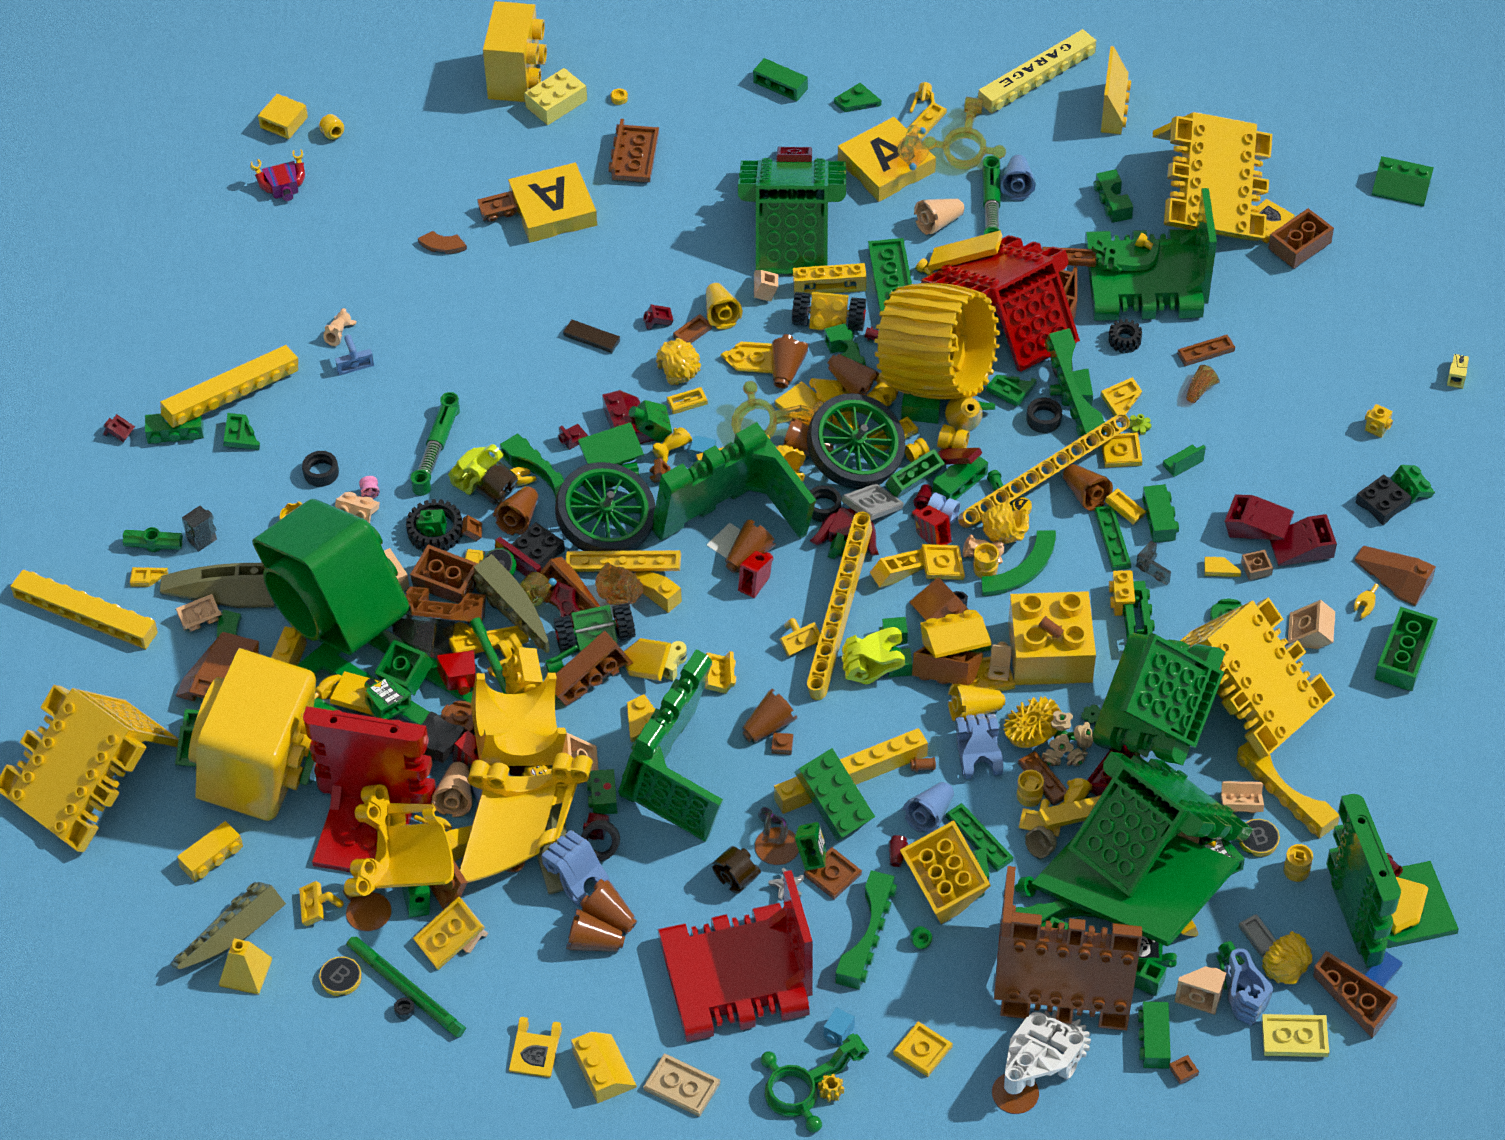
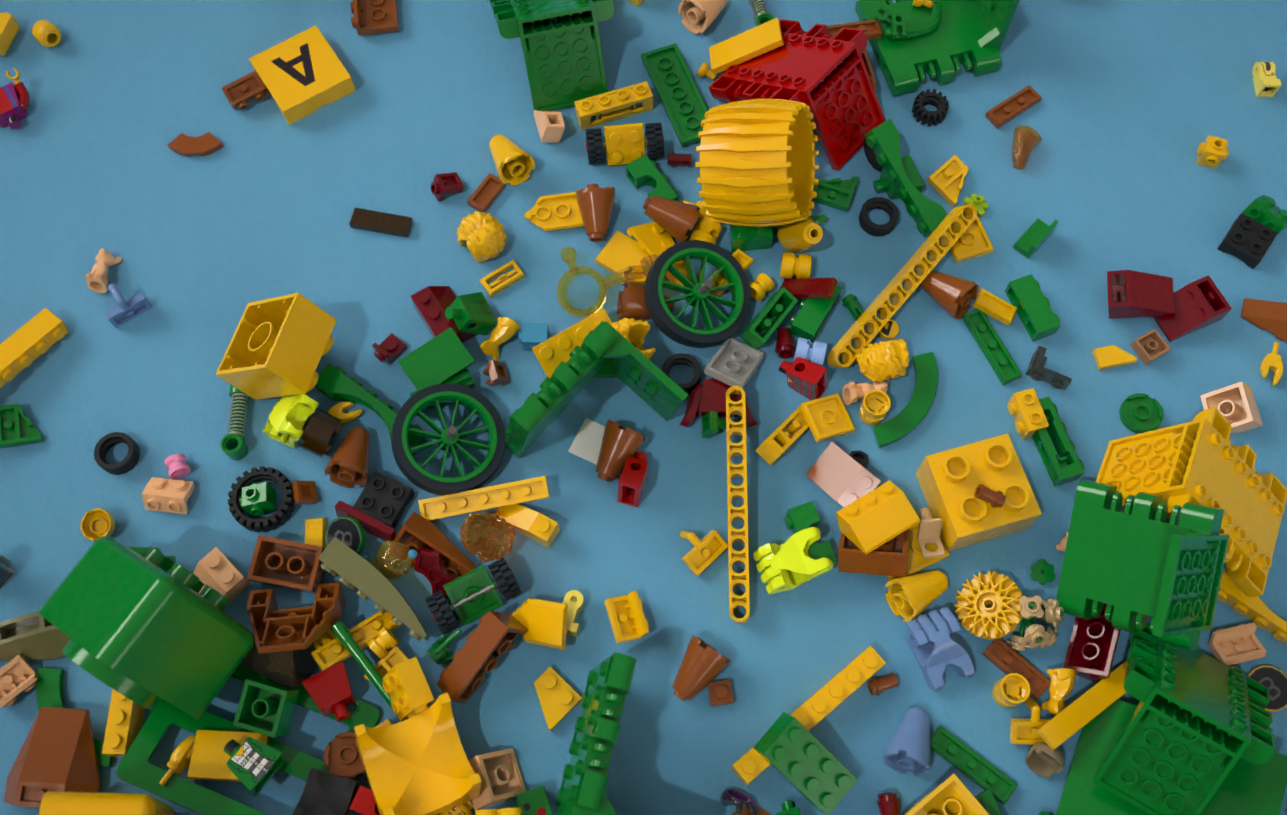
camera: 15 degrees left, 15 degrees up
(479, 407) = (277, 347): none -> yellow brick

